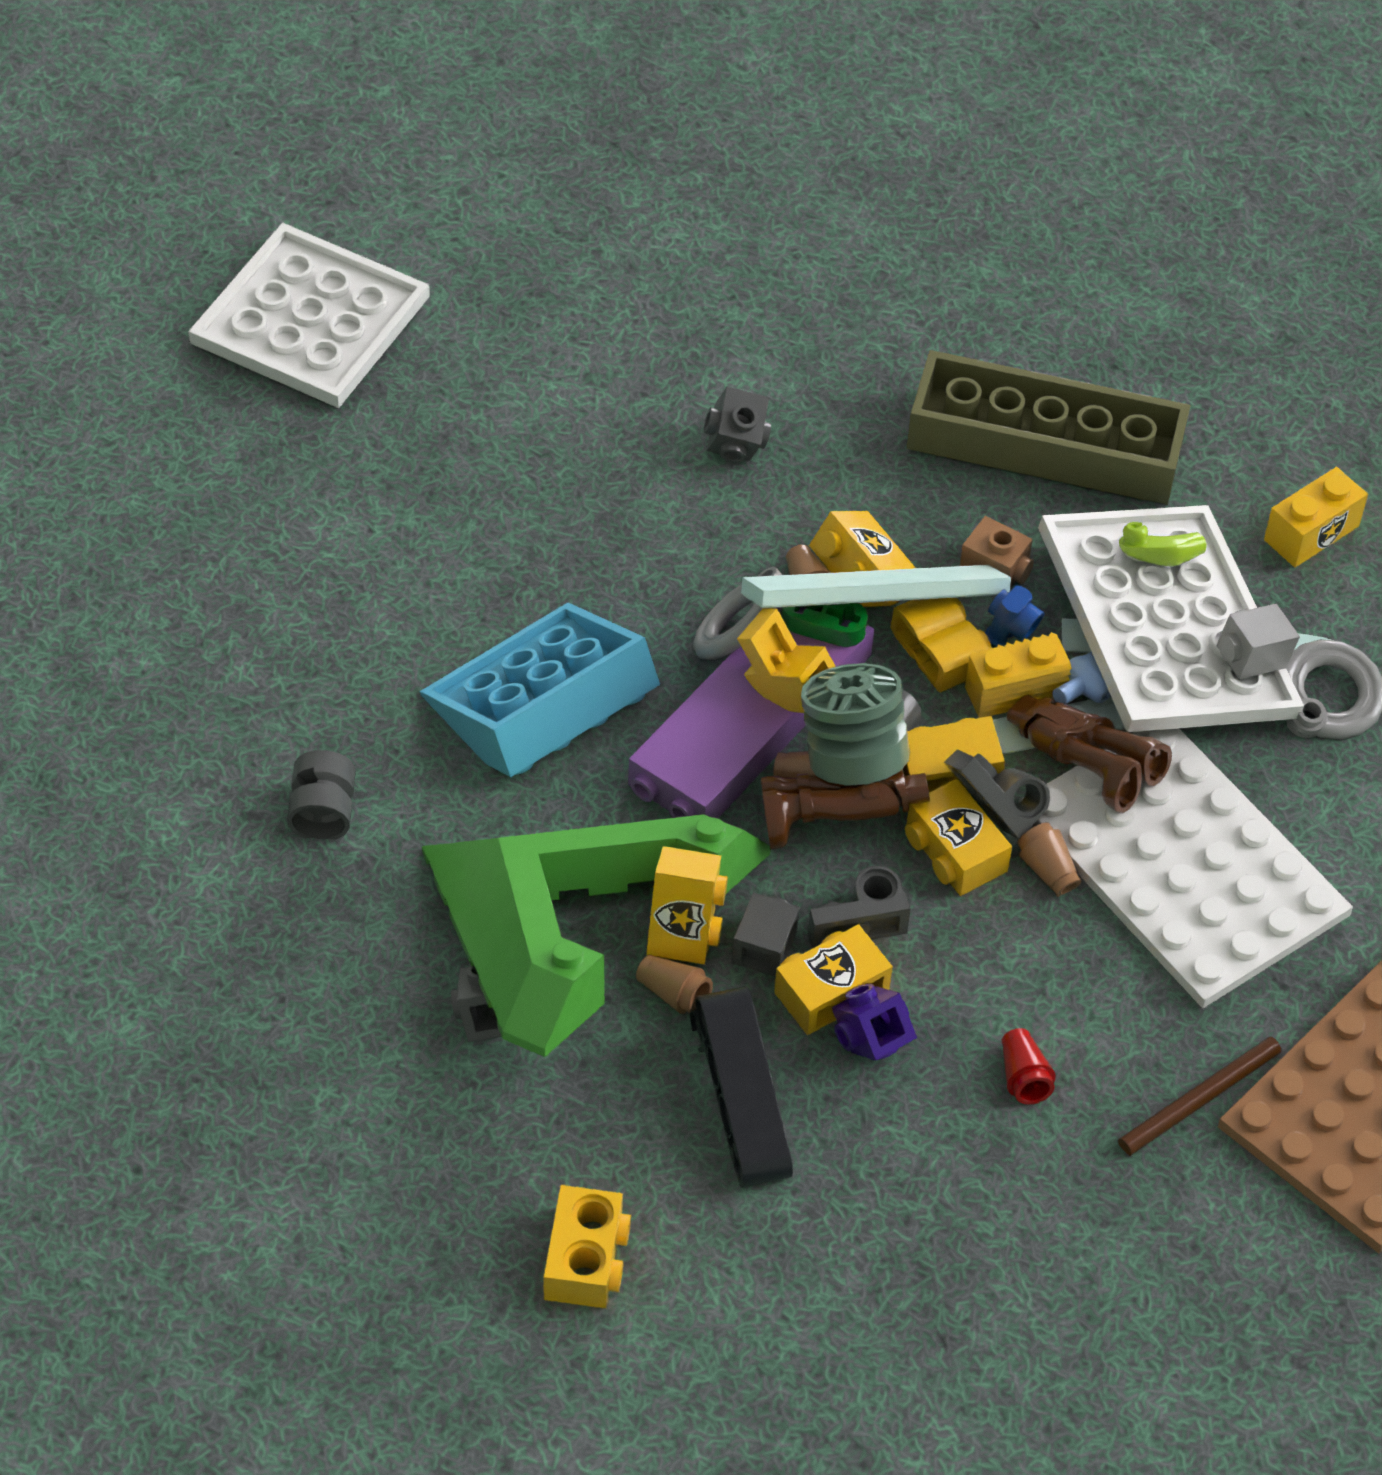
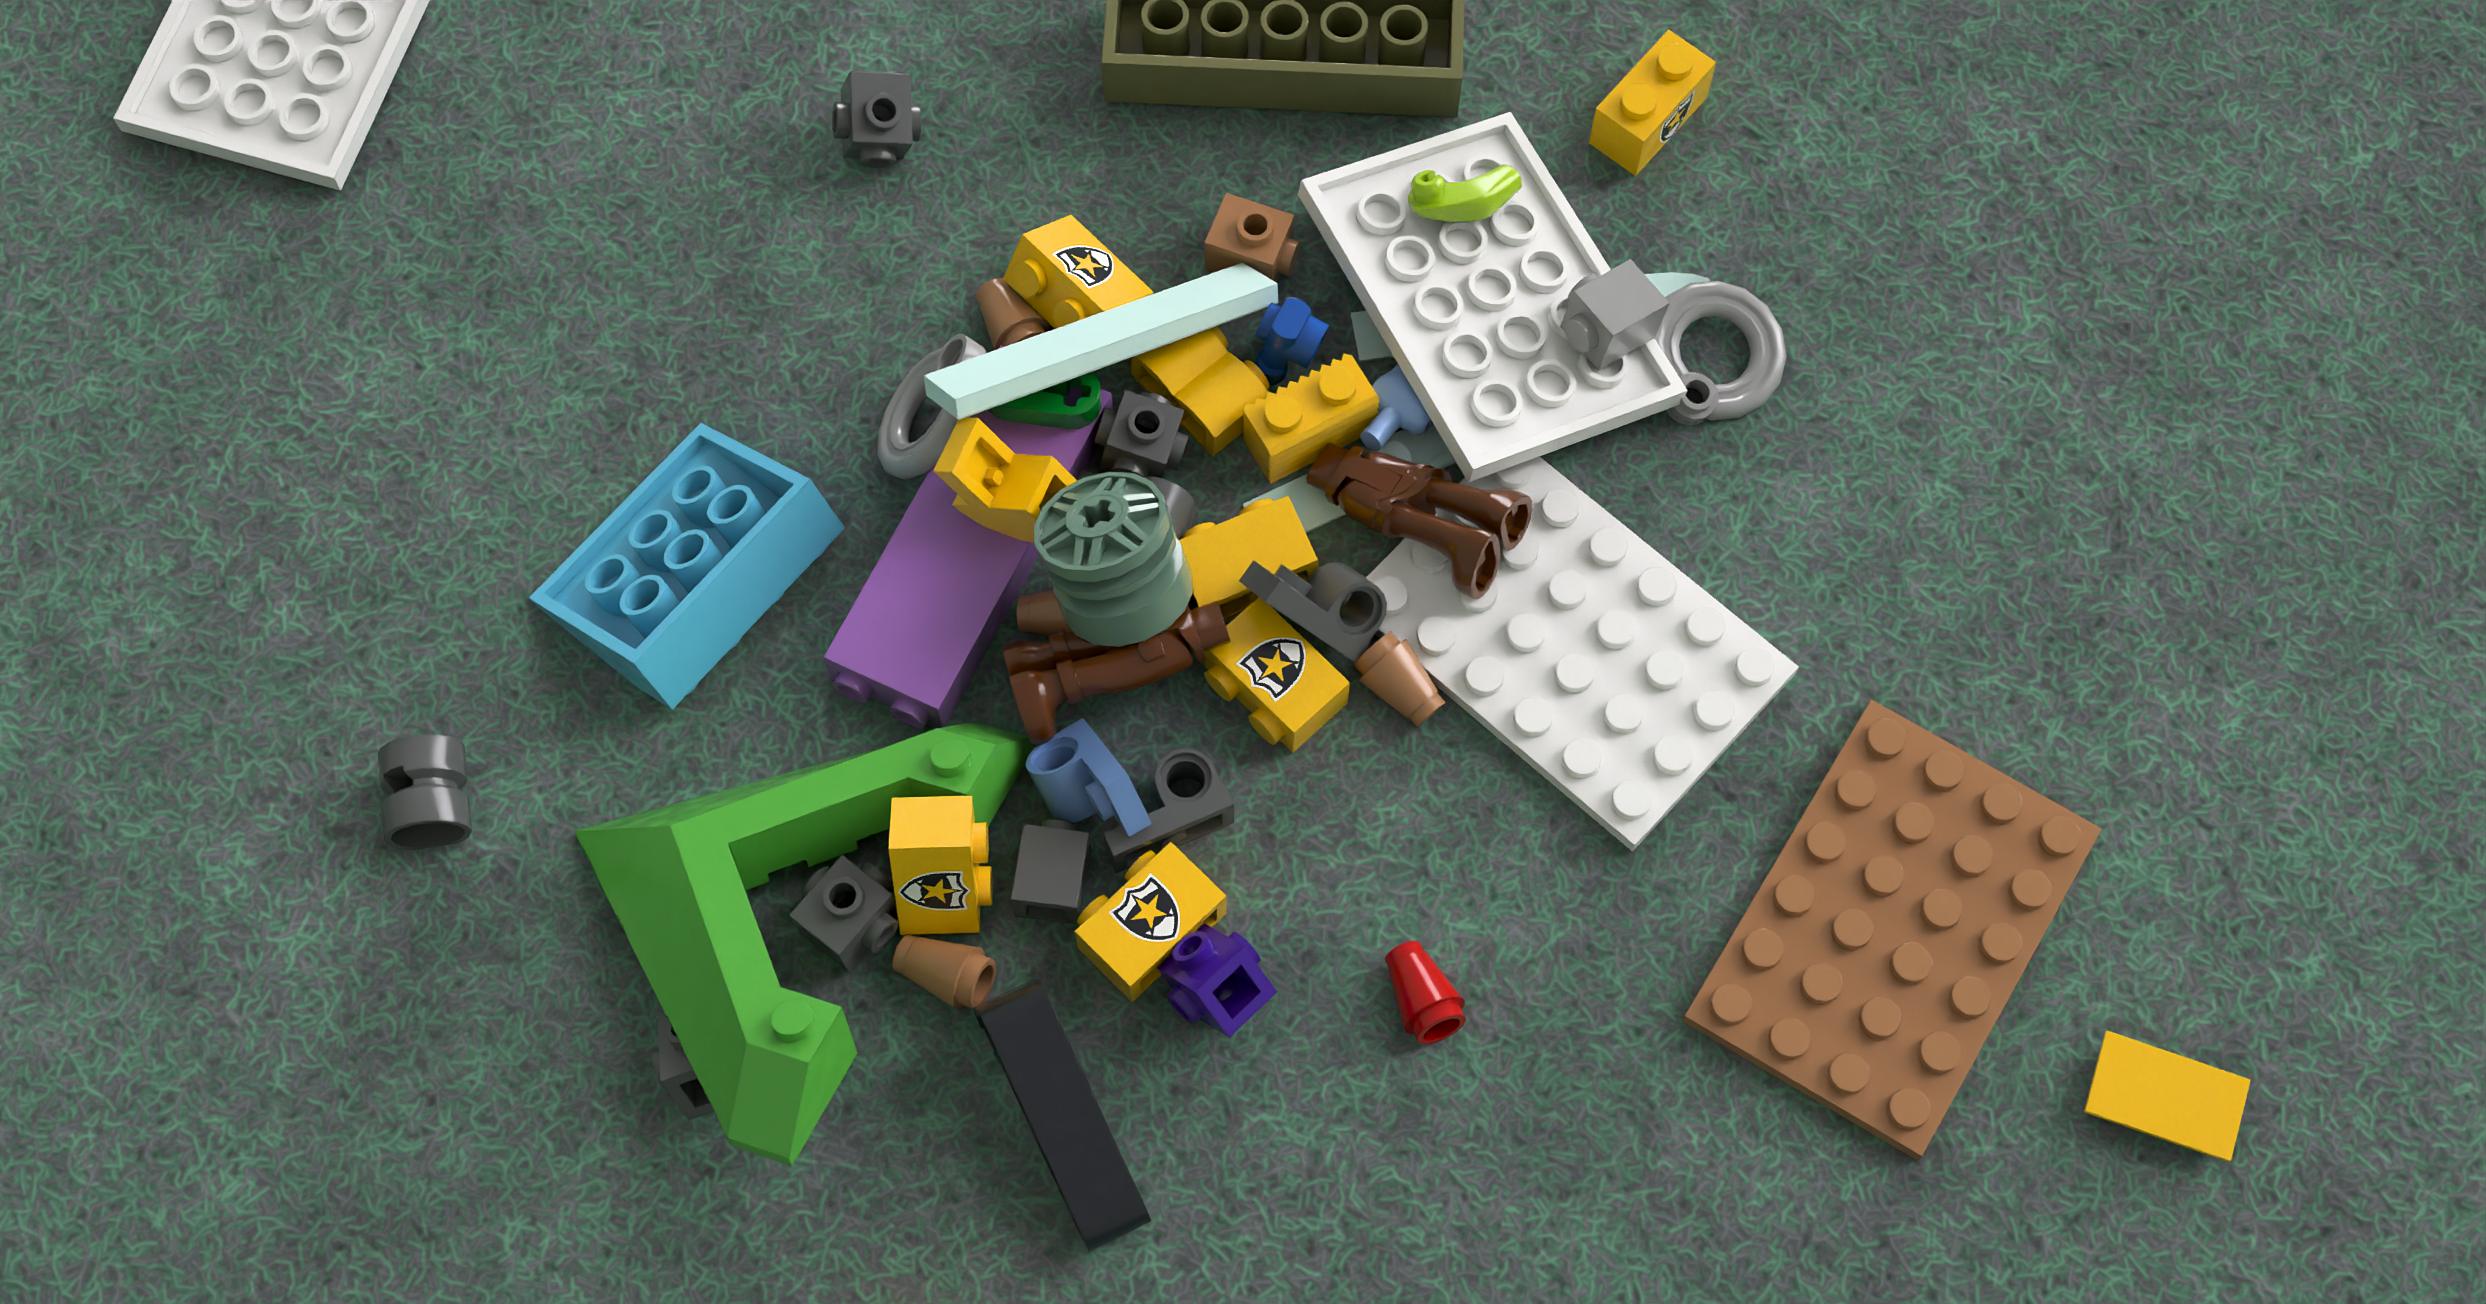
camera: 10 degrees left, 15 degrees up
(612, 926) = (847, 911): none -> dark grey brick
(804, 872) = (1083, 778): none -> medium blue plate
(896, 652) = (1141, 436): none -> dark grey brick
(1199, 1096) = (1651, 983): reddish brown bar -> none

